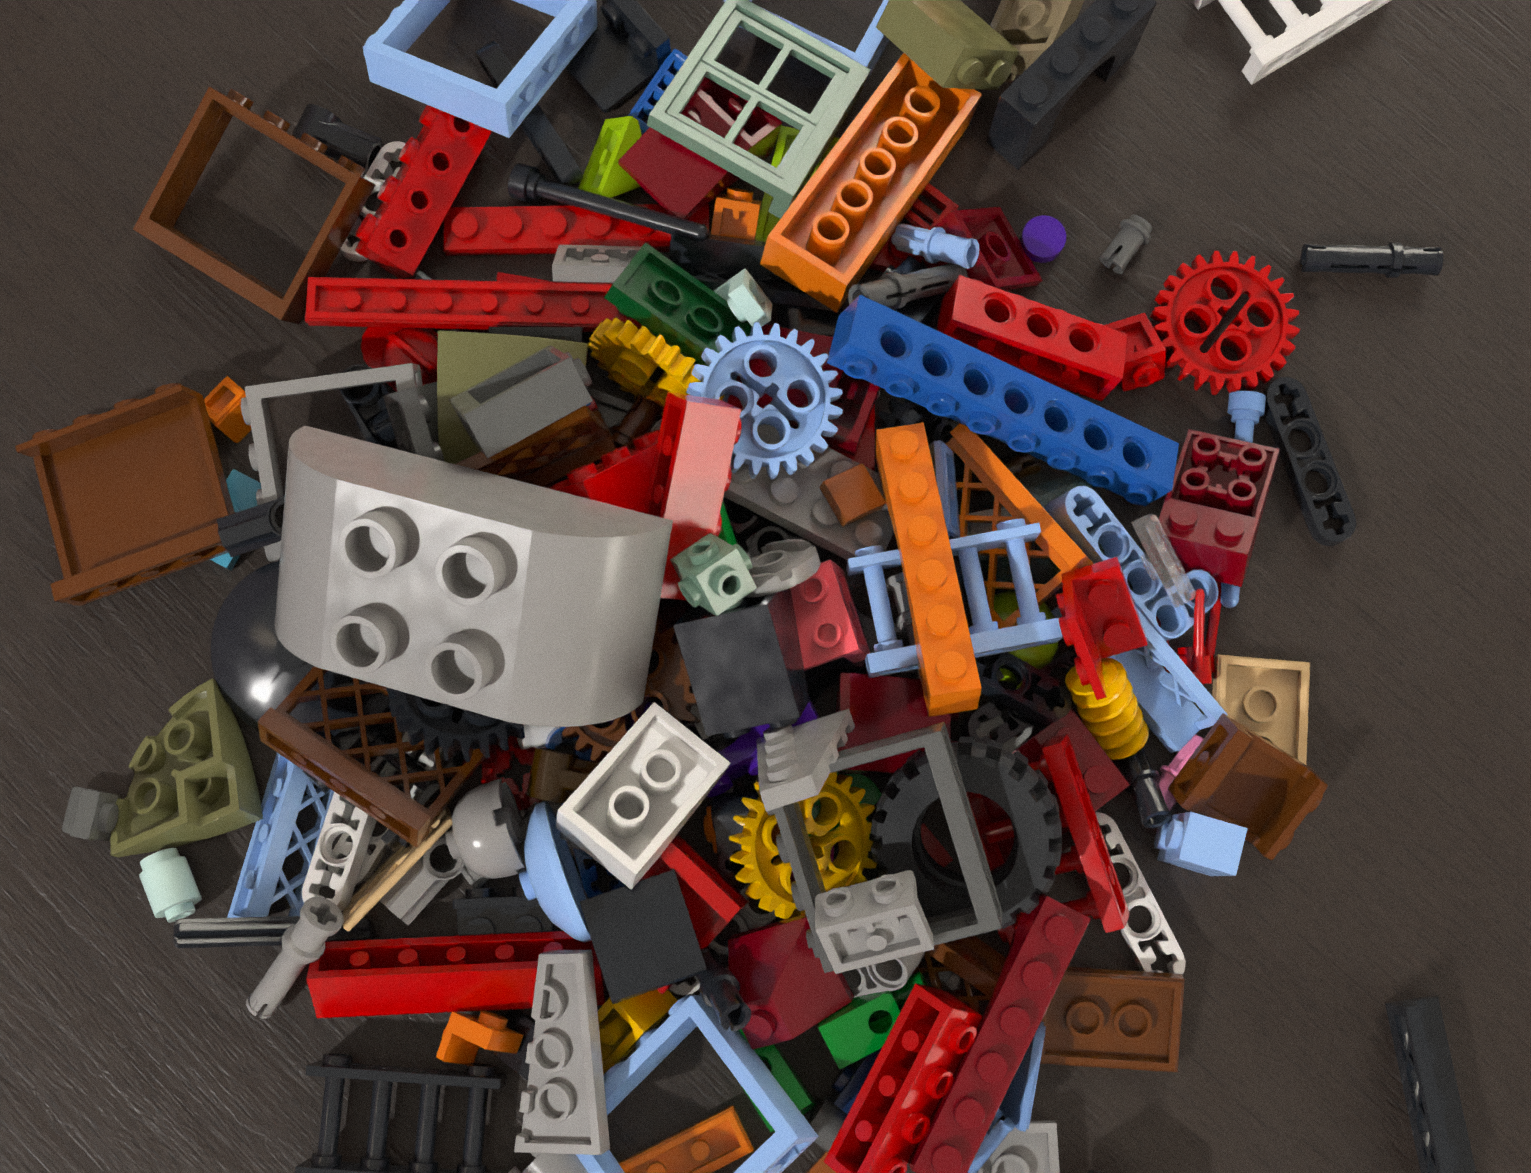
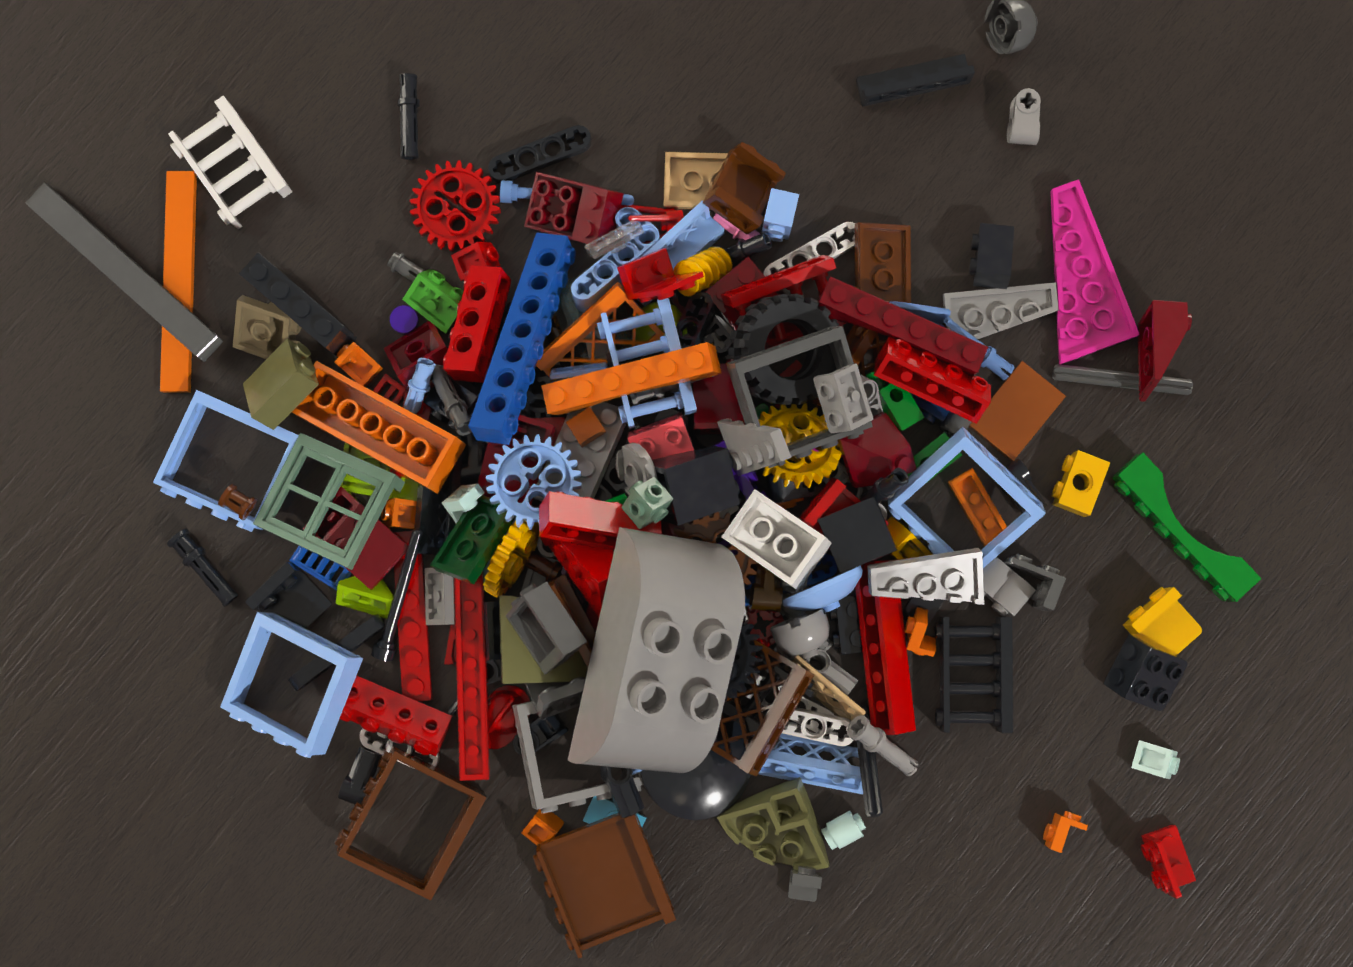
camera: 90 degrees left, 5 degrees up
(975, 163) = (357, 364): none -> orange bracket
(1078, 280) = (434, 299): none -> bright green bracket

